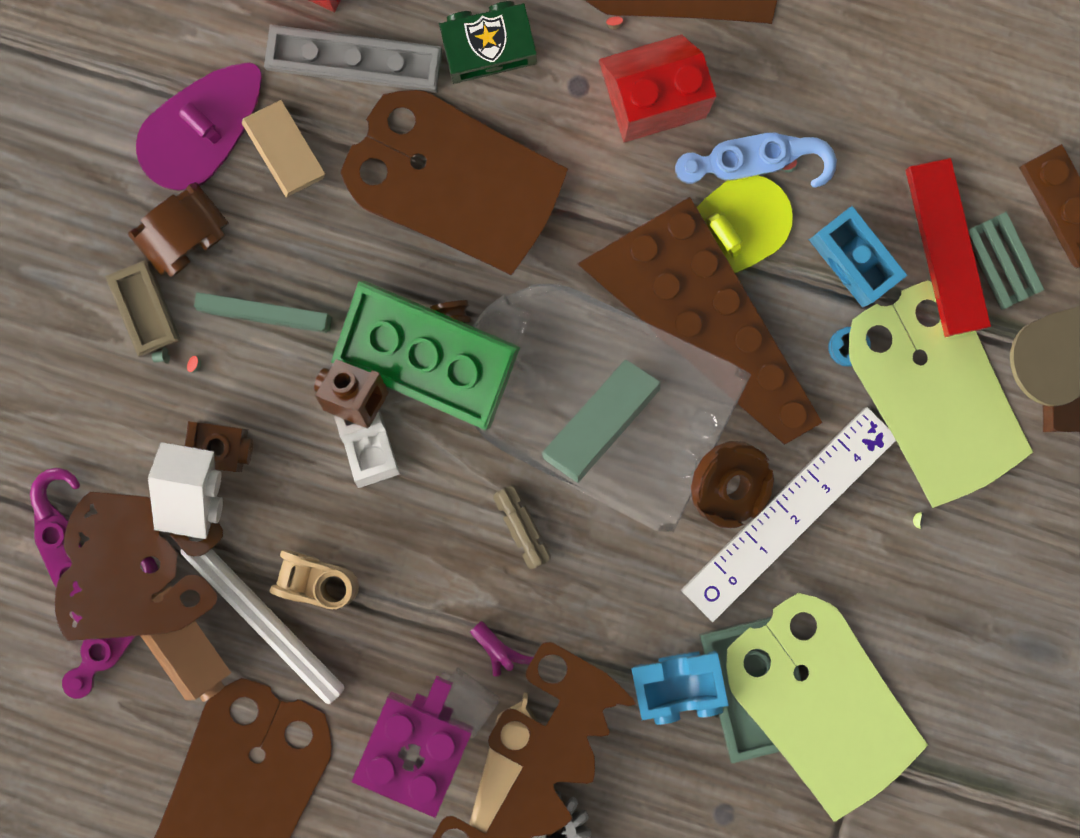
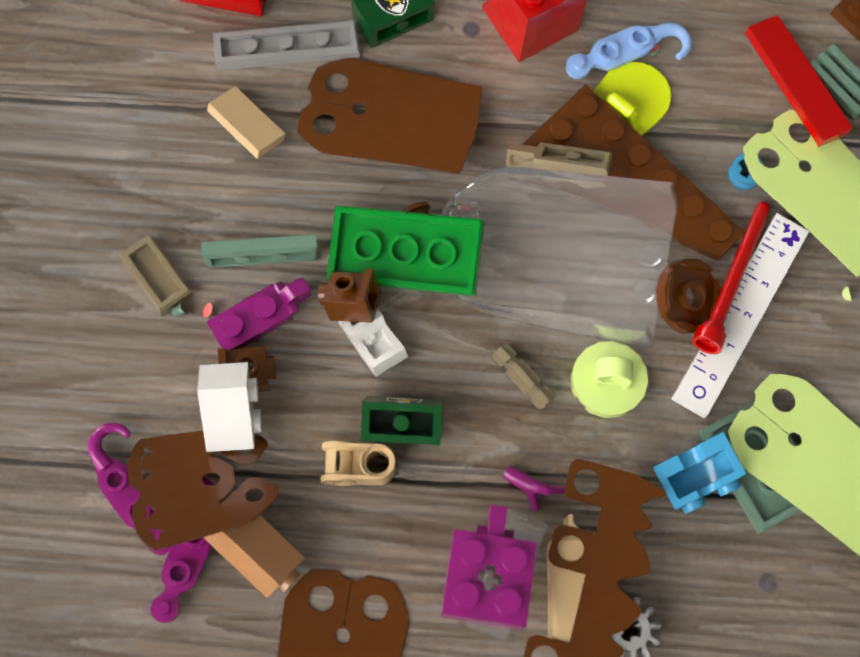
camera: 20 degrees left, 15 degrees down
(178, 228) = (170, 203): reddish brown cylinder -> none
(198, 127) = (170, 125): magenta shield -> none
(245, 384) = (258, 314): none -> magenta hinge
(267, 624) = (326, 515): white axle -> none
(372, 549) = (402, 420): none -> dark green brick
(601, 421) = (568, 266): sand green tile -> none
(616, 553) = (609, 379): none -> yellowish green tile
(630, 291) = (559, 158): none -> dark tan hinge
(742, 536) = (711, 334): none -> red piece
(857, 257) = (732, 97): dark azure brick -> none

